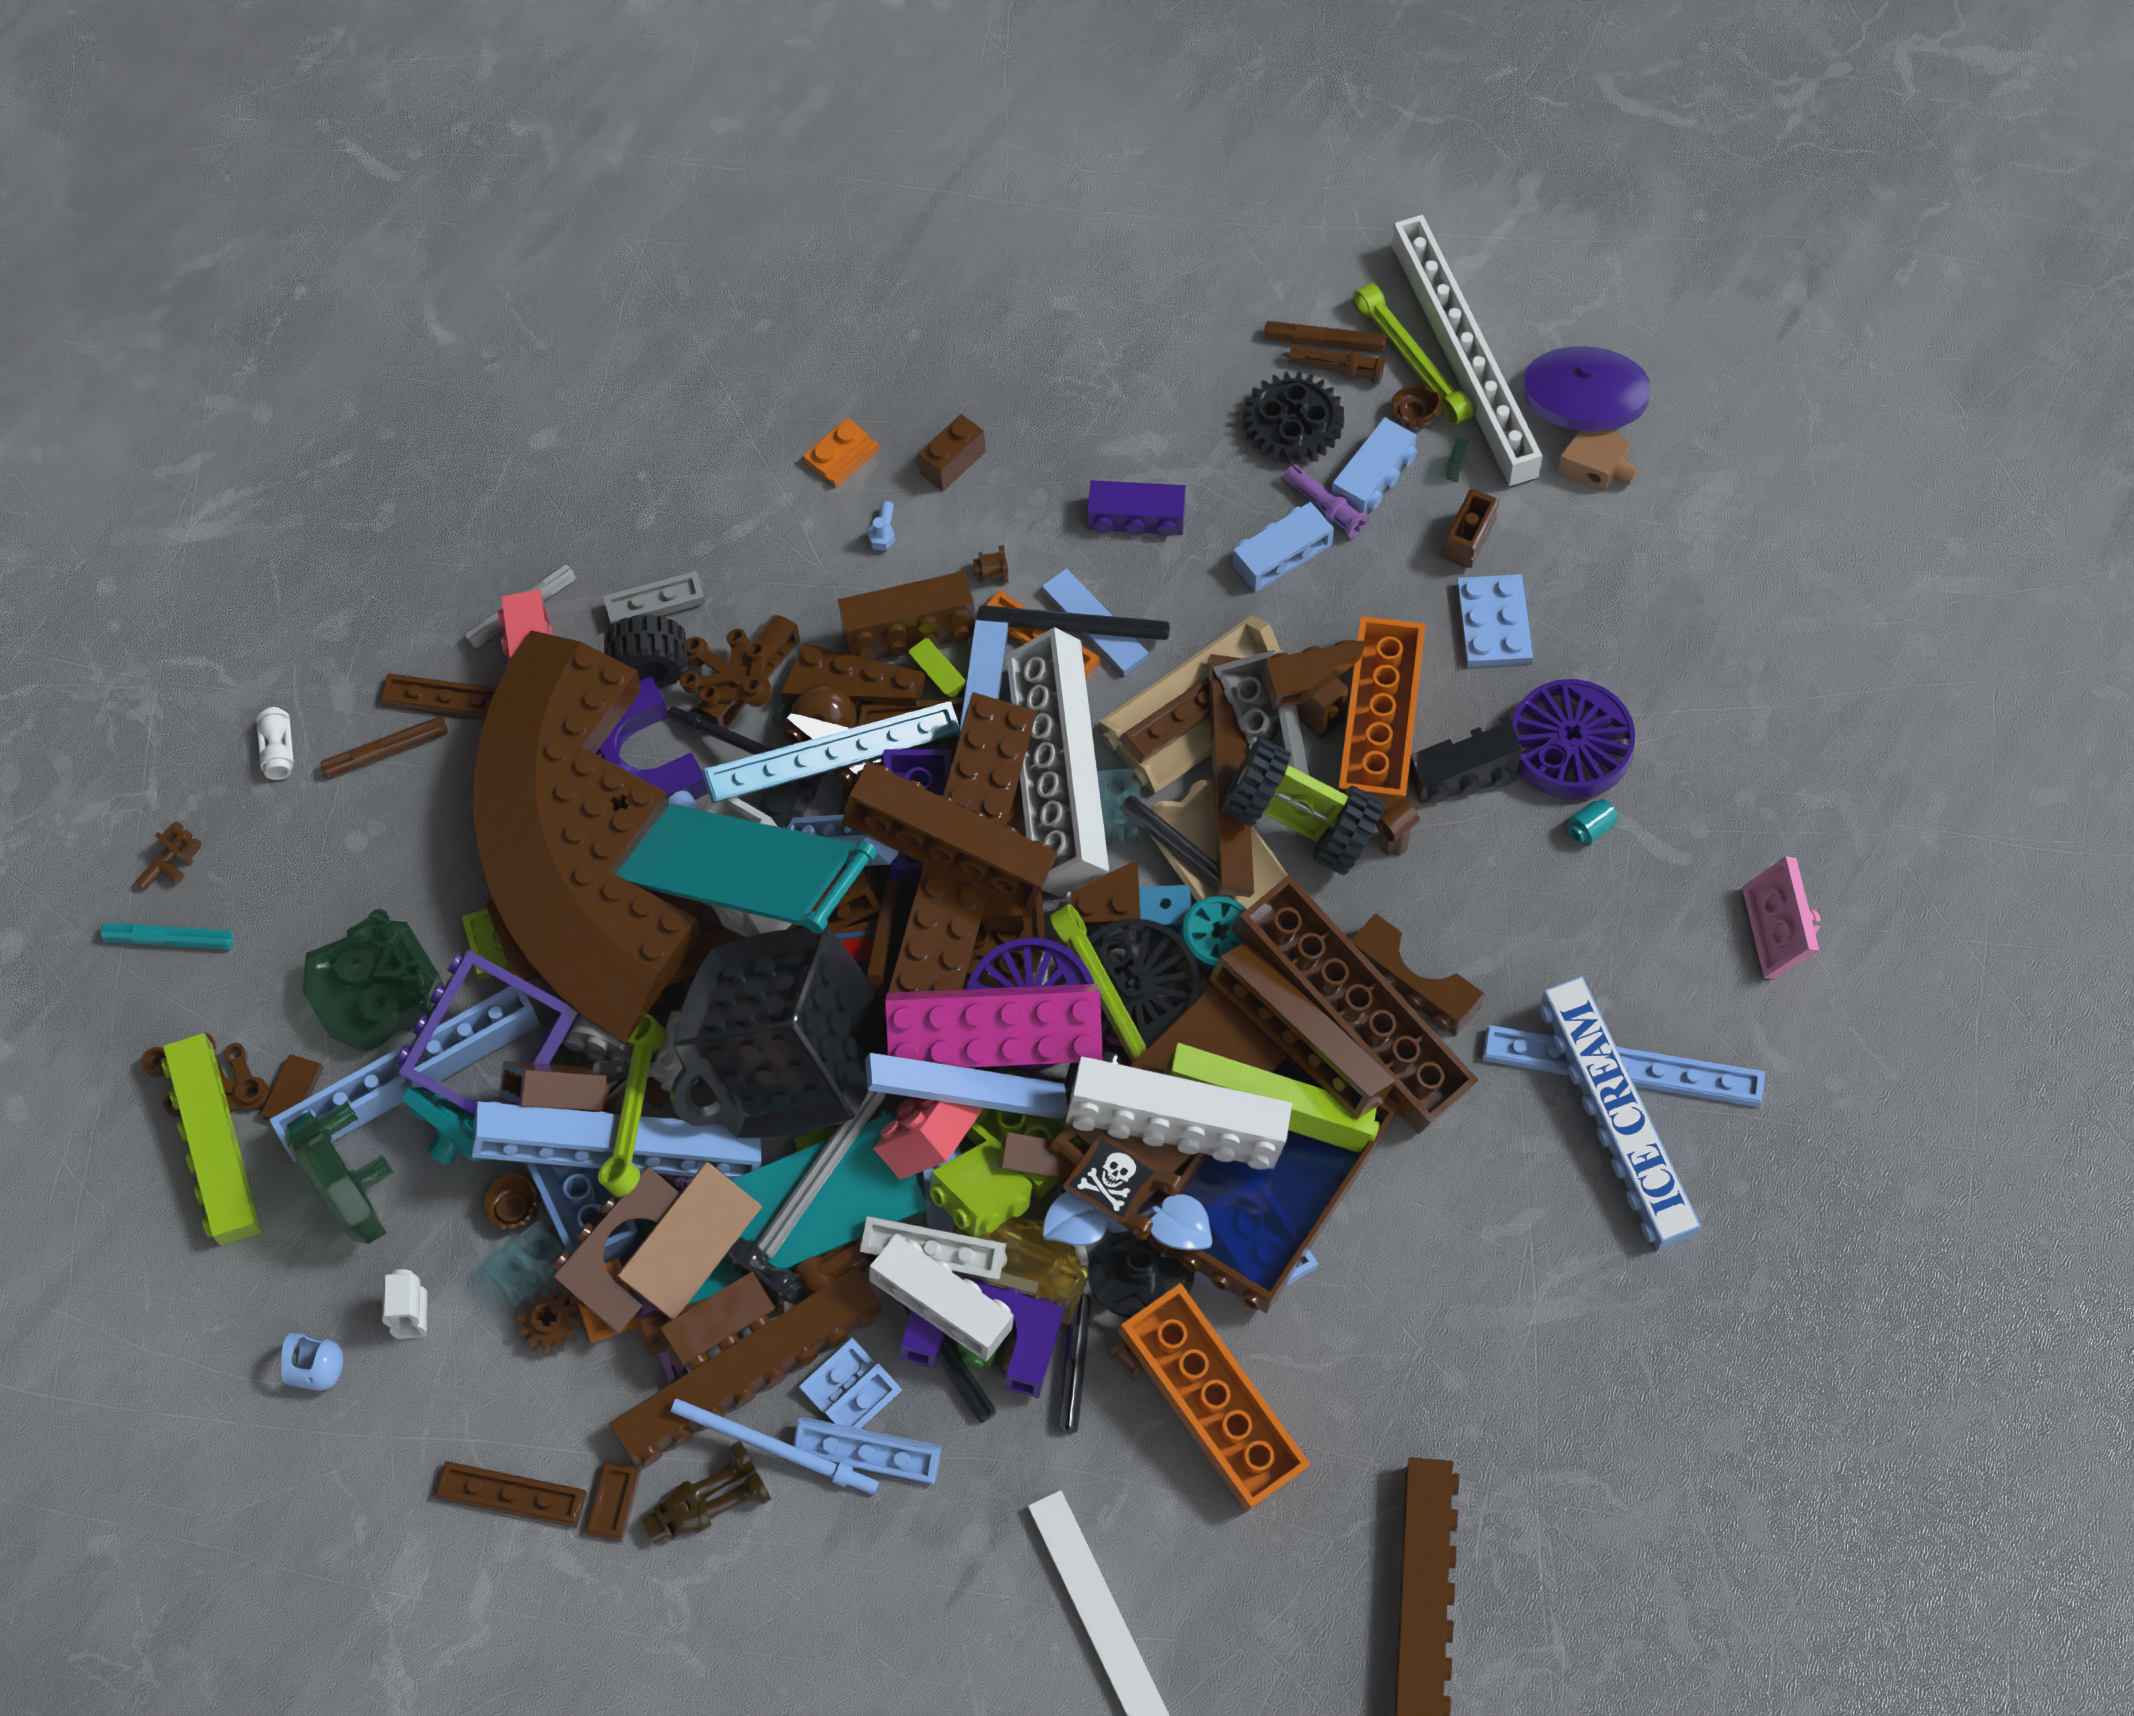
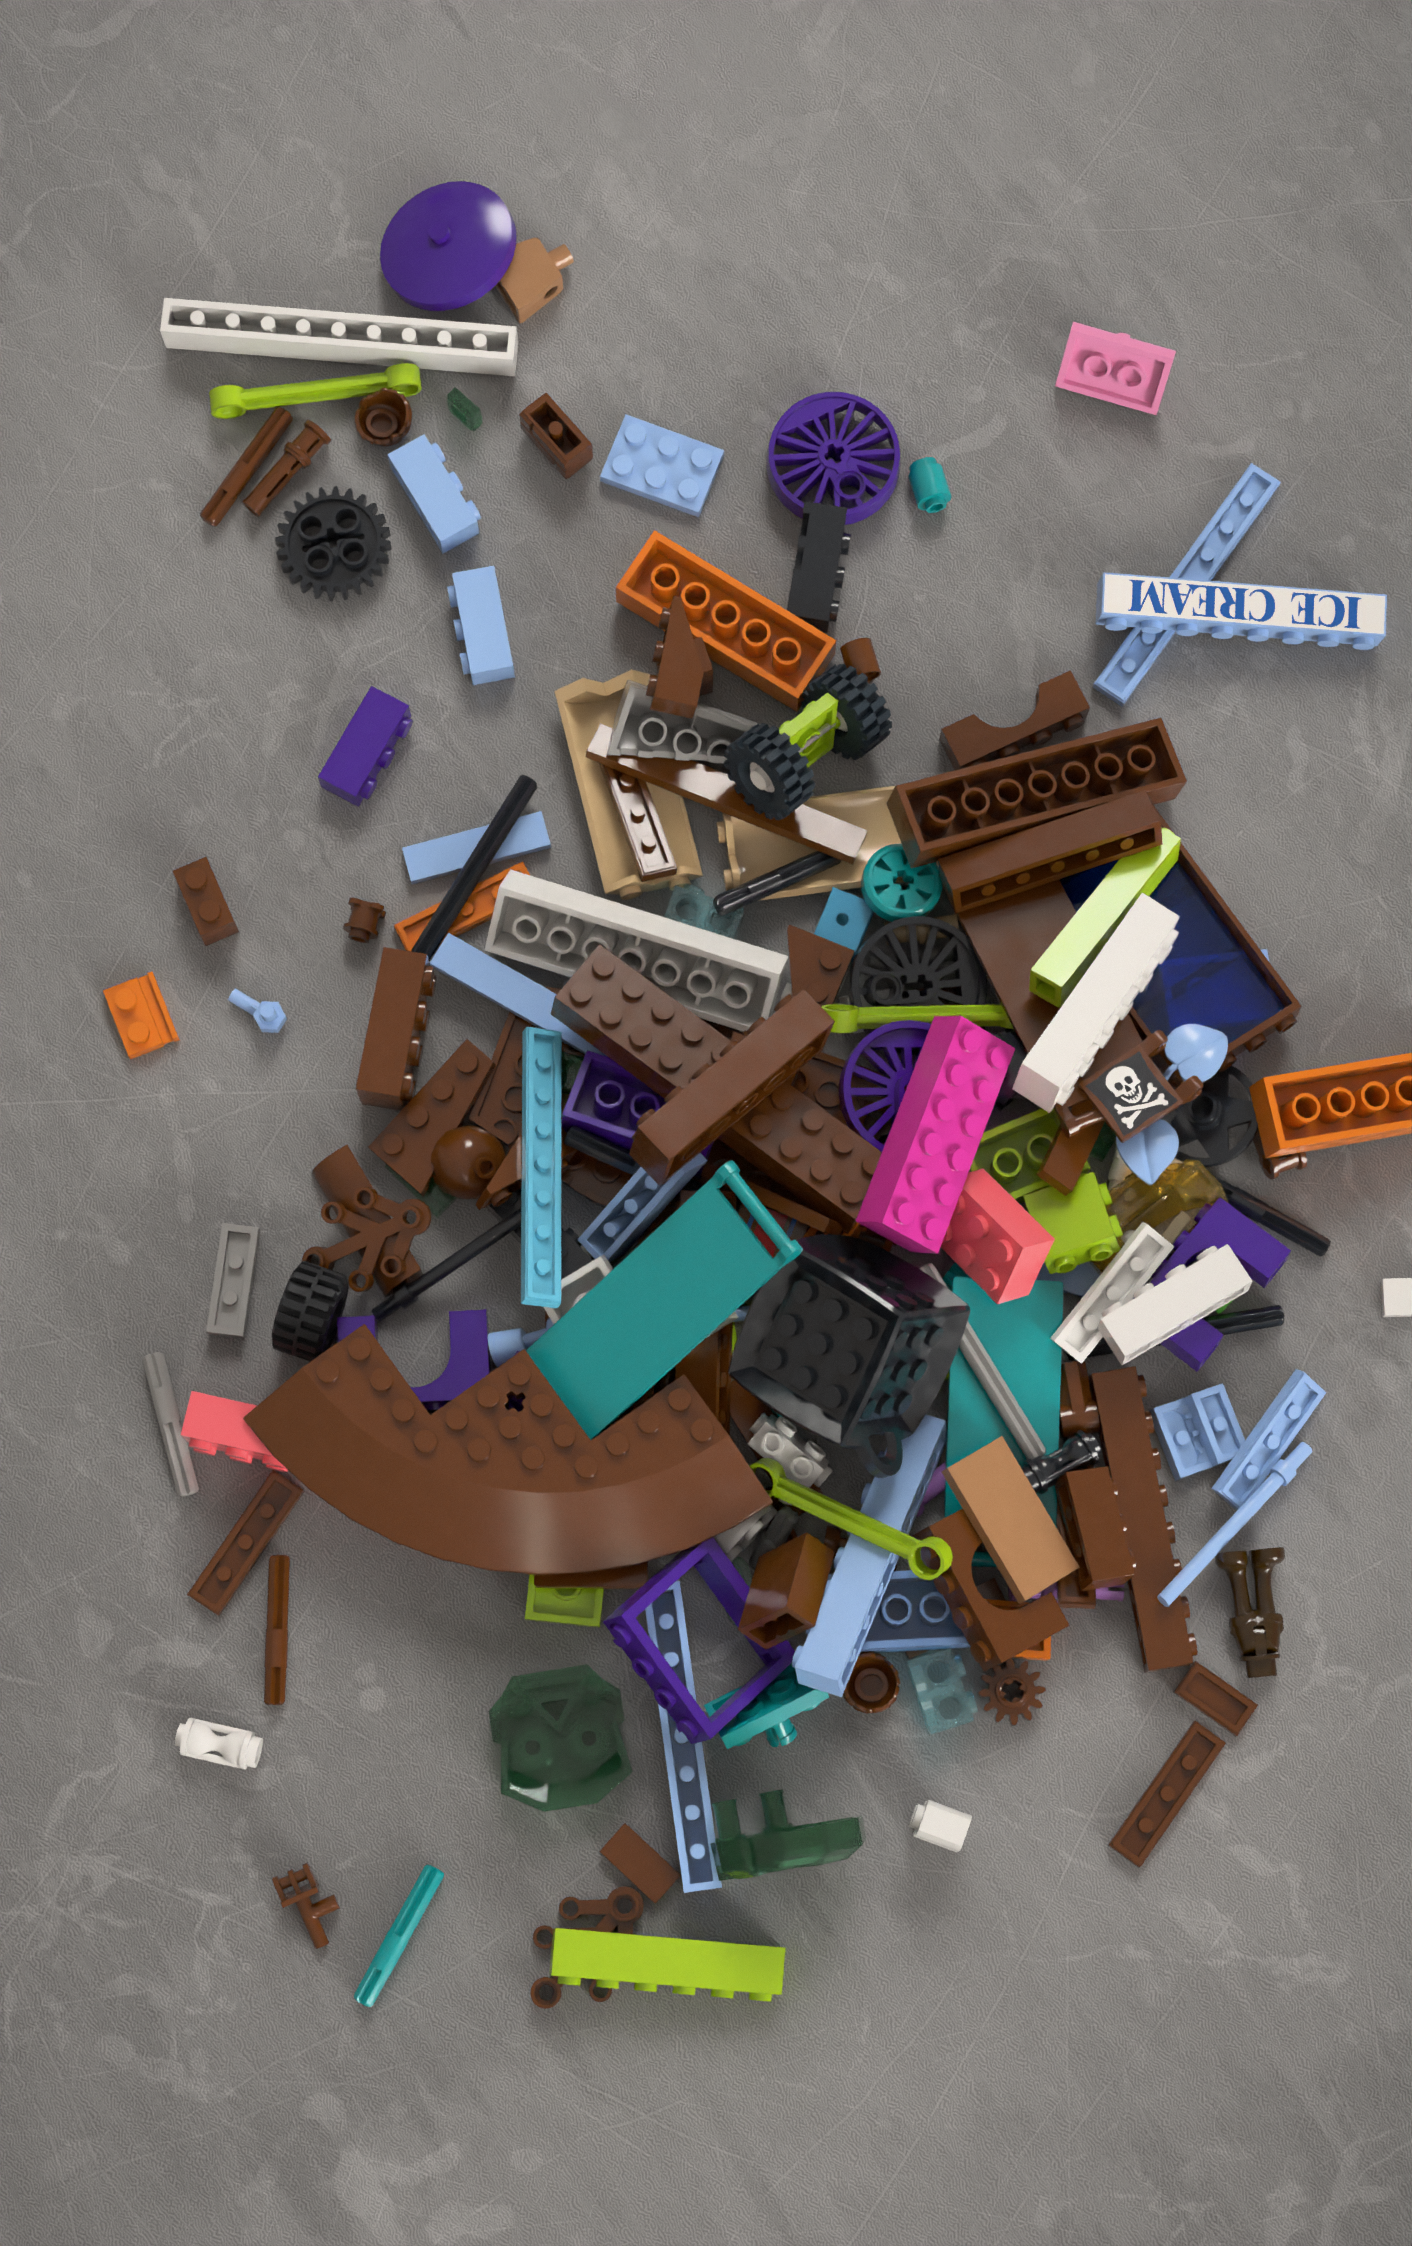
camera: 70 degrees left, 15 degrees up
(317, 1364) = (957, 1938): light blue helmet -> none
(939, 669) = (465, 1024): lime slope -> none
(965, 1086) = (984, 1188): light blue tile -> none
(1335, 508) = (463, 553): medium lavender pin -> none

